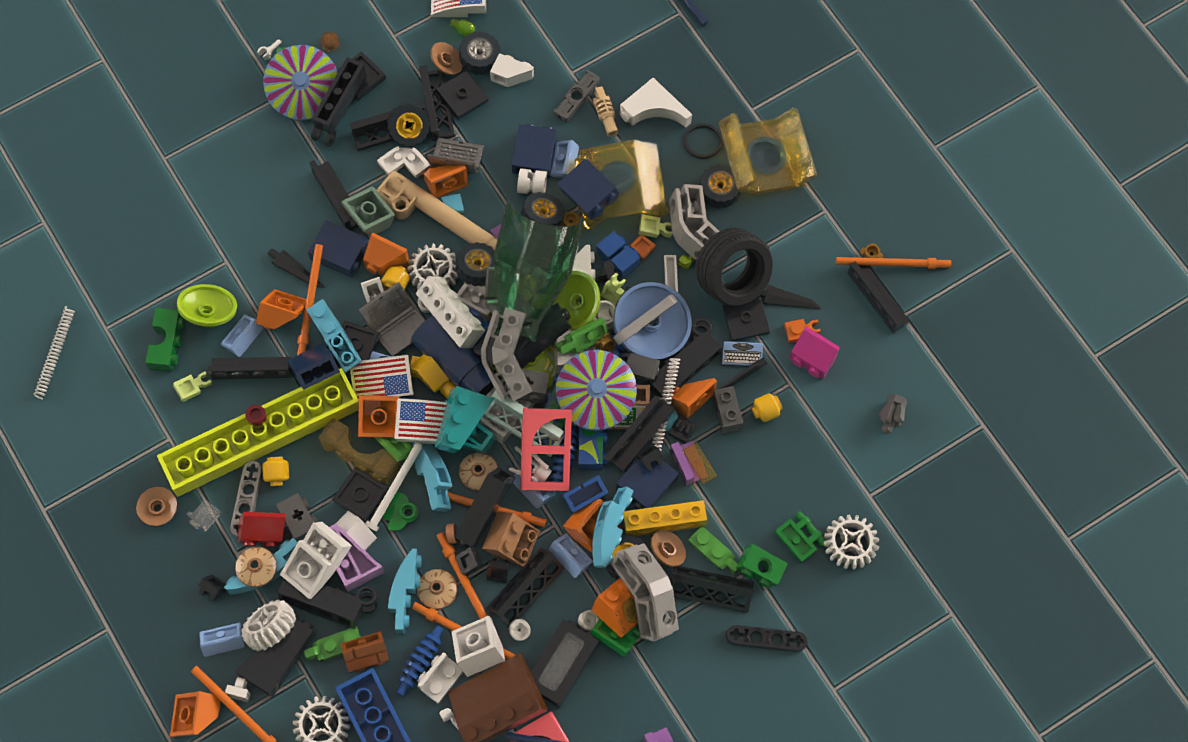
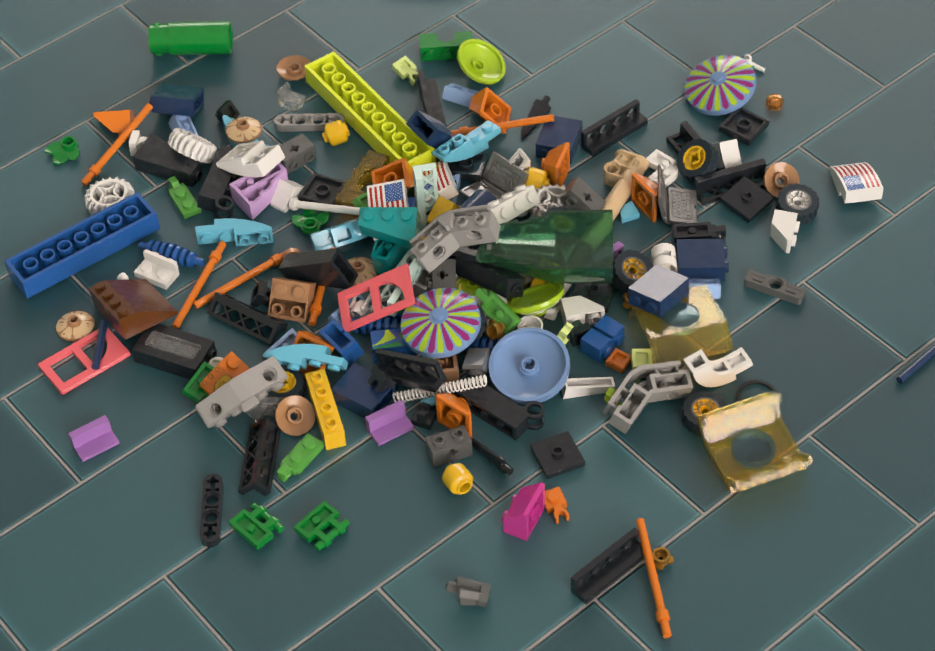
camera: 85 degrees right, 20 degrees down
(80, 617) = (191, 38): none -> green piece
(182, 639) = (177, 100): none -> dark blue brick
(256, 415) = (378, 101): dark red tile -> none
(261, 529) = (277, 124): red slope -> none
(337, 100) = (706, 105): black hinge -> none
(364, 652) = (174, 213): dark orange brick -> none
(369, 211) = (595, 145): sand green slope -> none
(391, 97) = (728, 152): none -> white slope
(420, 382) = (421, 193): none -> light aqua fence
(442, 597) = (241, 259): tan dish -> none
(446, 237) = (581, 196): none -> dark grey brick
(463, 26) = (824, 190): clear neon green cylinder -> none
(469, 561) = (266, 270): black tile -> none
(477, 646) = (183, 286): white slope -> none
(496, 148) = (699, 230): none -> black hinge
(519, 629) = (205, 318): white tile -> none
(605, 111) = (764, 309): tan hinge -> none
(645, 319) = (524, 351): light grey beam -> none
(653, 101) = (785, 342): white arch -> none
(676, 167) = (717, 372): none -> white arch
(700, 463) = (390, 434): clear yellow piece -> none
(715, 255) = (575, 422): black tyre -> none
(741, 353) = (516, 454): slope -> none
(772, 566) = (284, 502): green brick -> none
(781, 297) = (589, 483): black bar -> none
(795, 602) = (251, 529): none -> green plate
(856, 548) = (319, 575): white gear -> none

